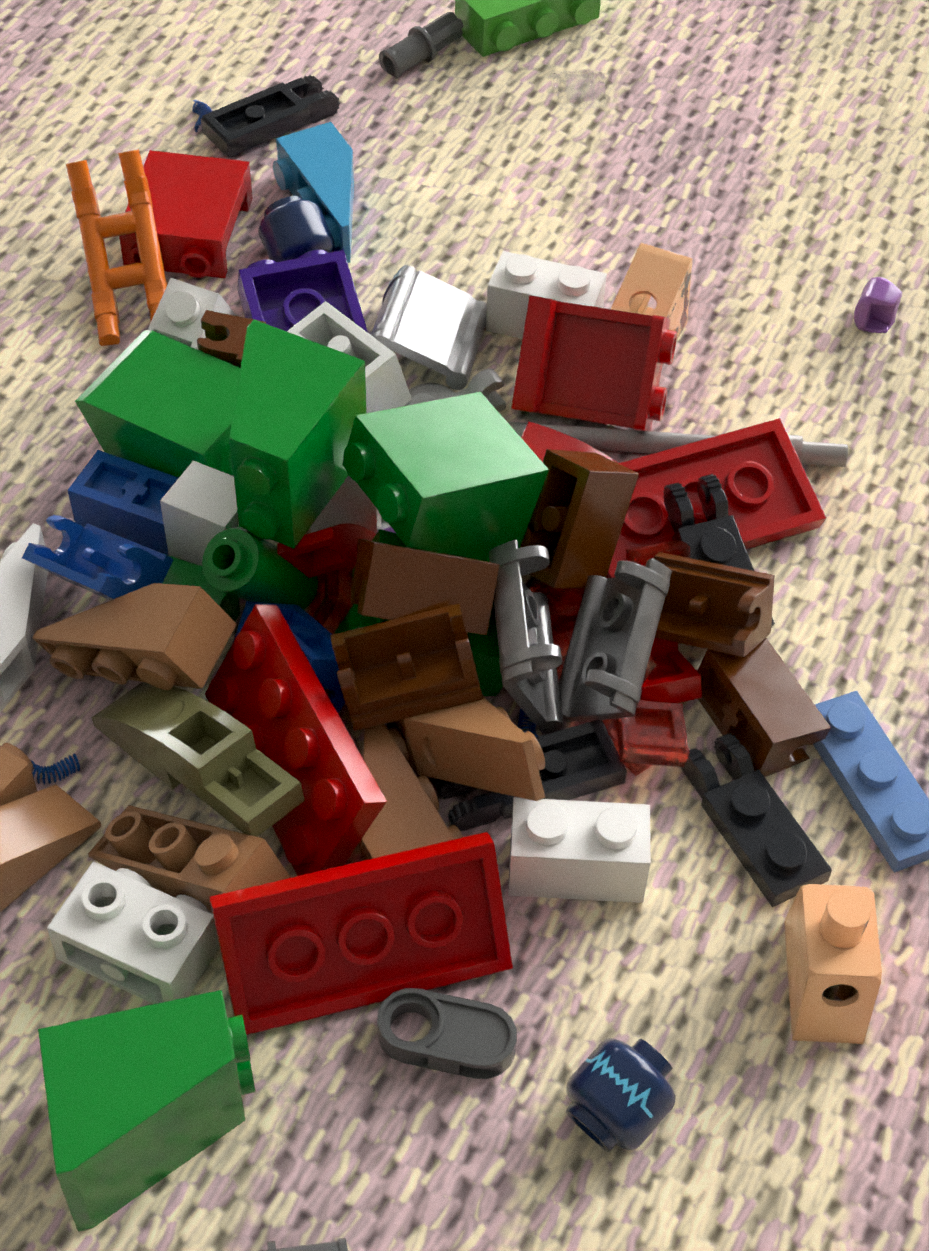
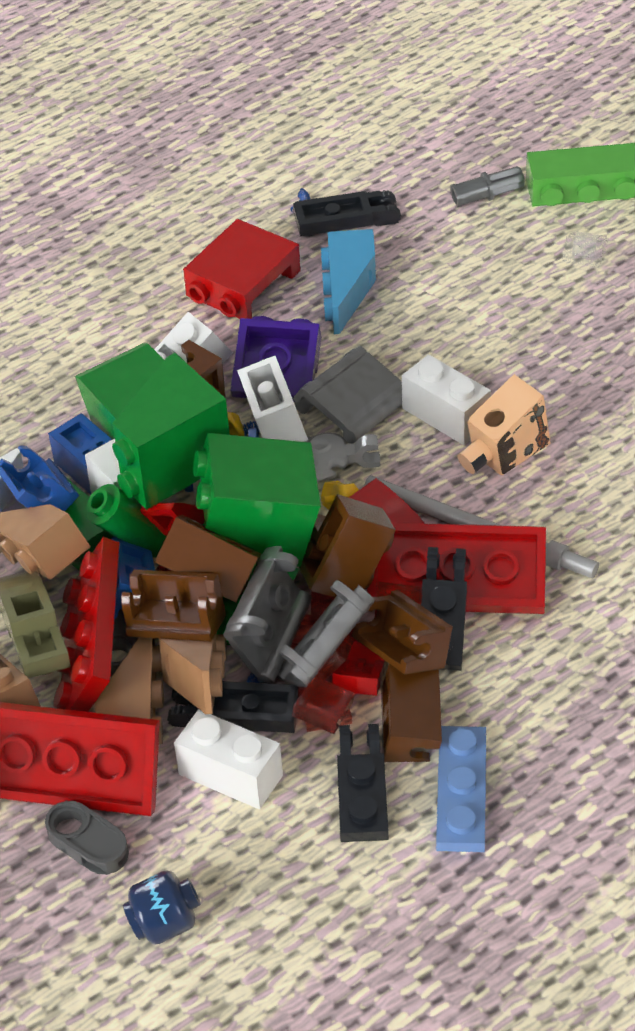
camera: 30 degrees right, 5 degrees down
(97, 228) = (168, 264): orange piece -> none
(293, 229) = (304, 299): dark blue head -> none
(593, 364) = (439, 450): red panel -> none
(831, 943) = (346, 867): light nougat torso -> none

